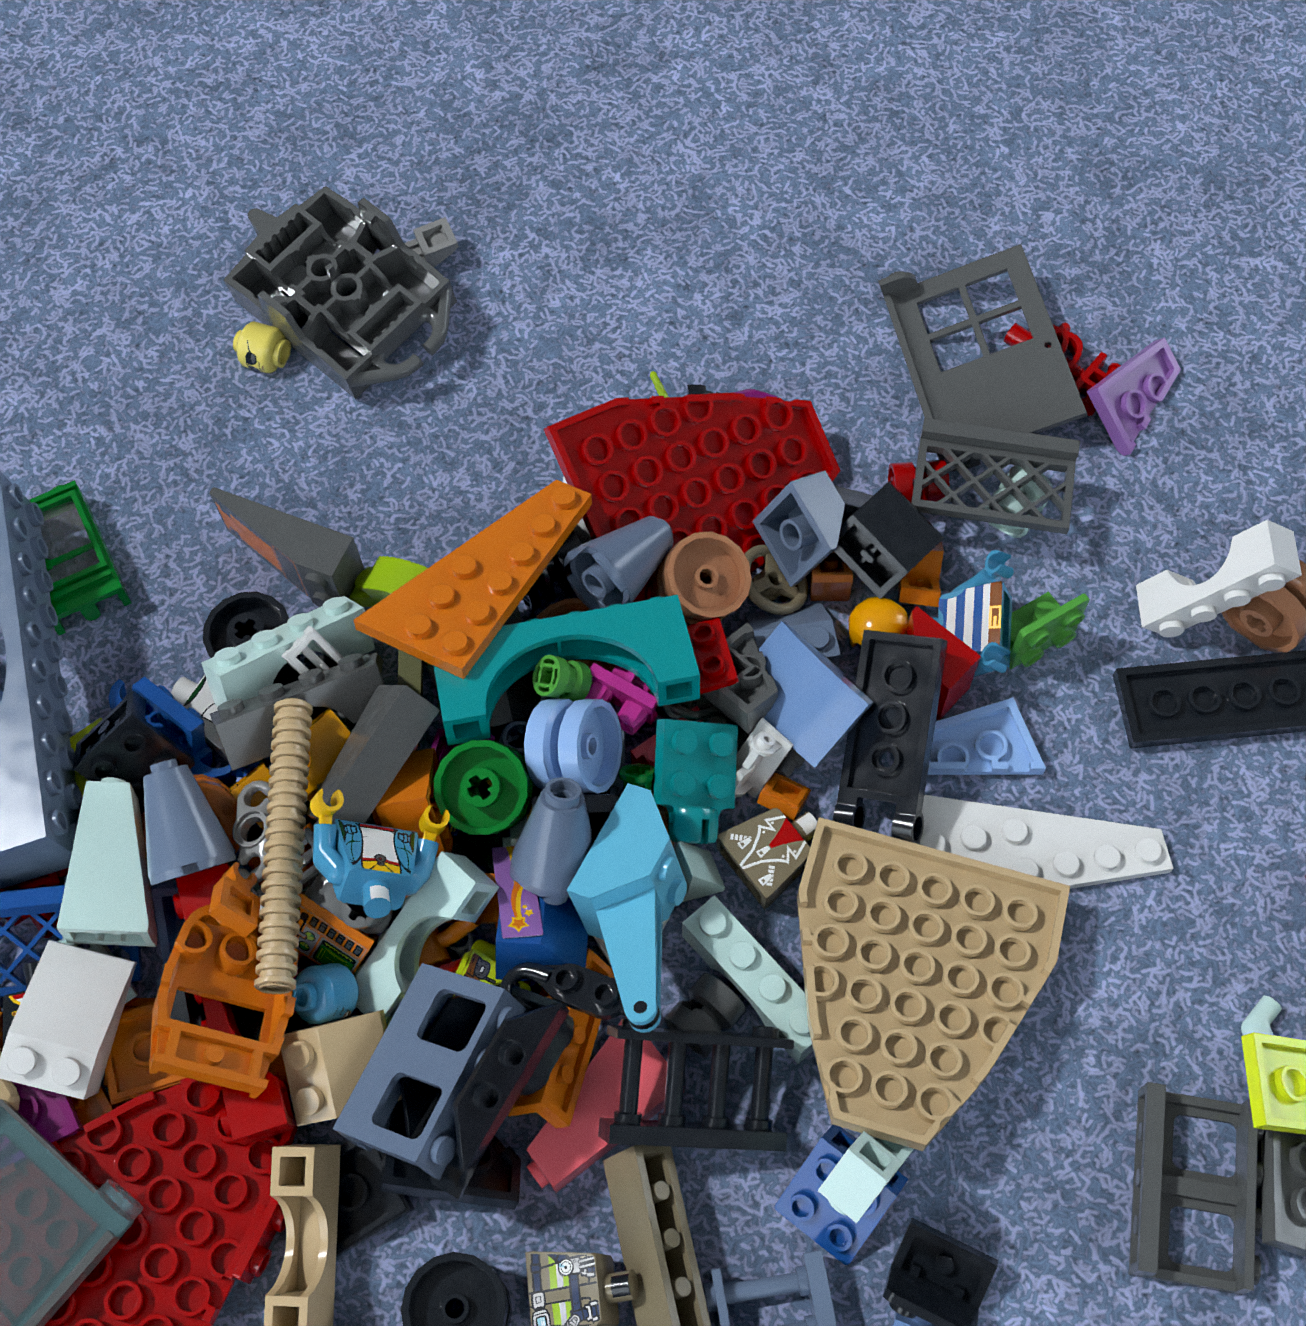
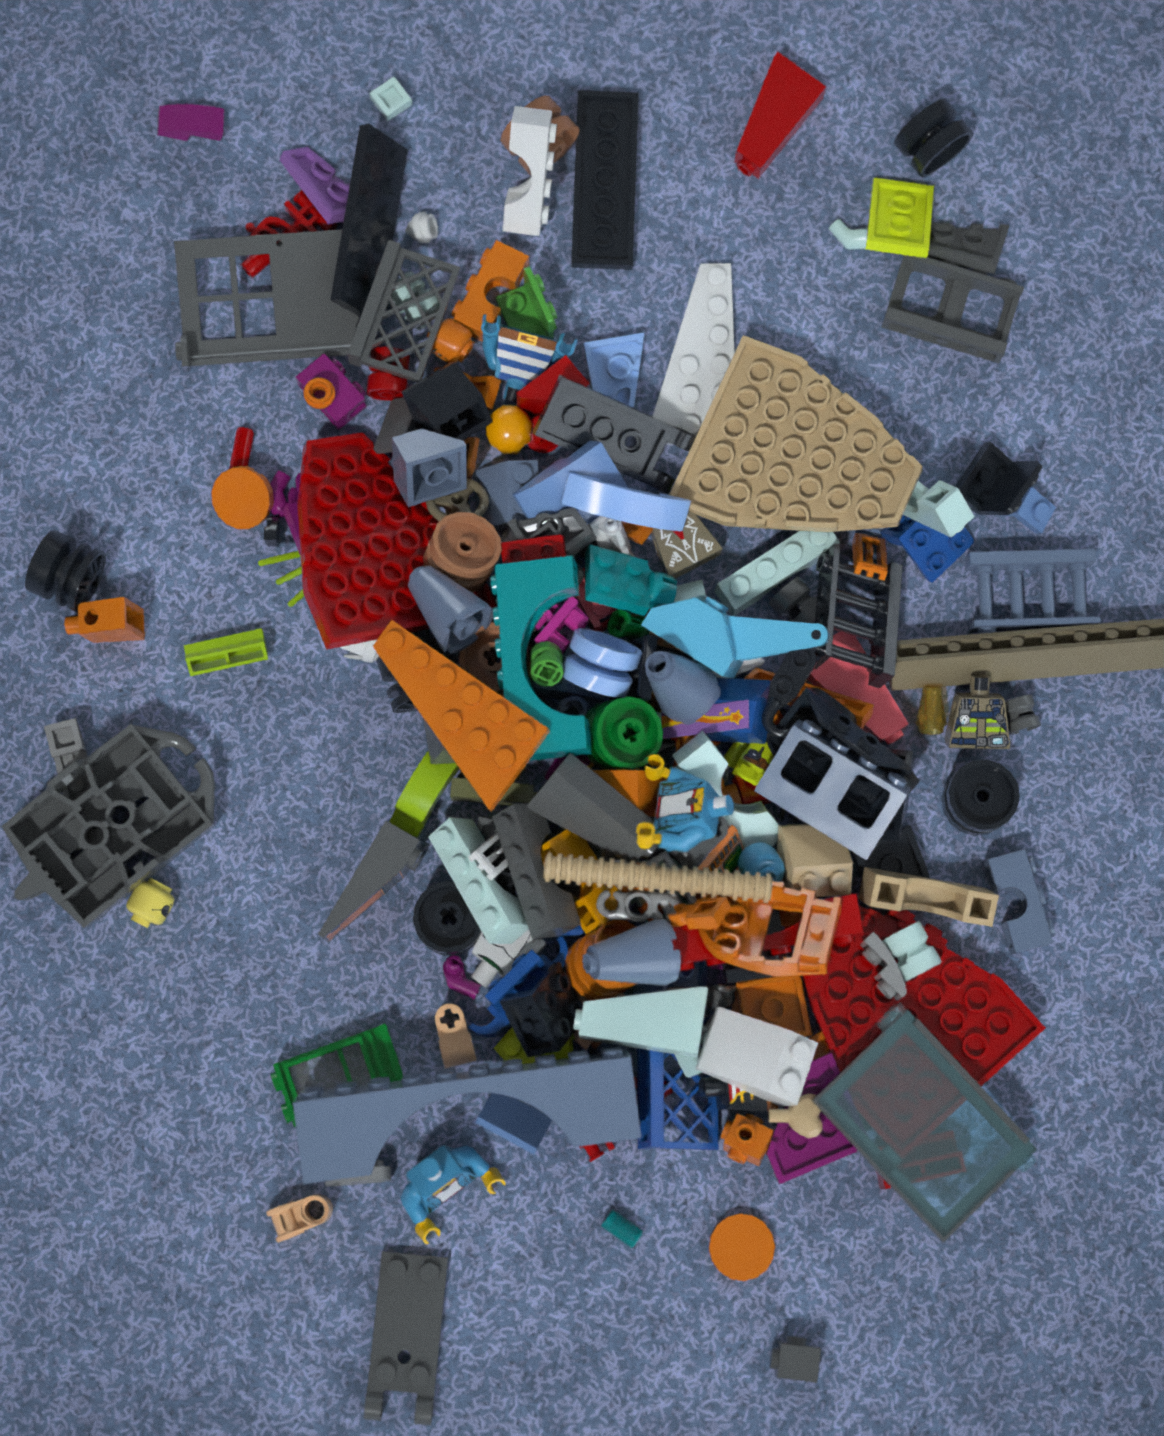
camera: 90 degrees left, 15 degrees up
(102, 668) = (454, 1042): none -> light nougat piece
(152, 968) = (717, 996): none -> dark grey plant
(176, 1192) = (890, 977): none -> light grey slope
(186, 665) = (456, 977): none -> magenta arm
(208, 1221) = (912, 951): none -> light aqua wheel
(553, 376) = (226, 652): none -> lime piece
(570, 244) = (107, 621): none -> orange torso
(577, 1223) = (931, 711): none -> clear yellow cone
(619, 207) = (64, 570): none -> black wheel
(736, 362) = (242, 497): none -> orange tile
(769, 1100) = (868, 565): none -> orange tile
(786, 359) = (242, 447): none -> red axle
(792, 757) = (625, 503): none -> light blue slope
(873, 399) = (315, 385): none -> orange plate
(883, 432) = (348, 396): none -> magenta brick
(973, 543) = (452, 341): none -> orange head
(1071, 577) = (500, 268): none -> orange arch
(1115, 501) = (422, 227): none -> white plate
(1120, 432) = (368, 216): none -> black plate
(1174, 251) = (183, 120): none -> magenta slope
(1269, 444) = (390, 98): none -> light aqua plate

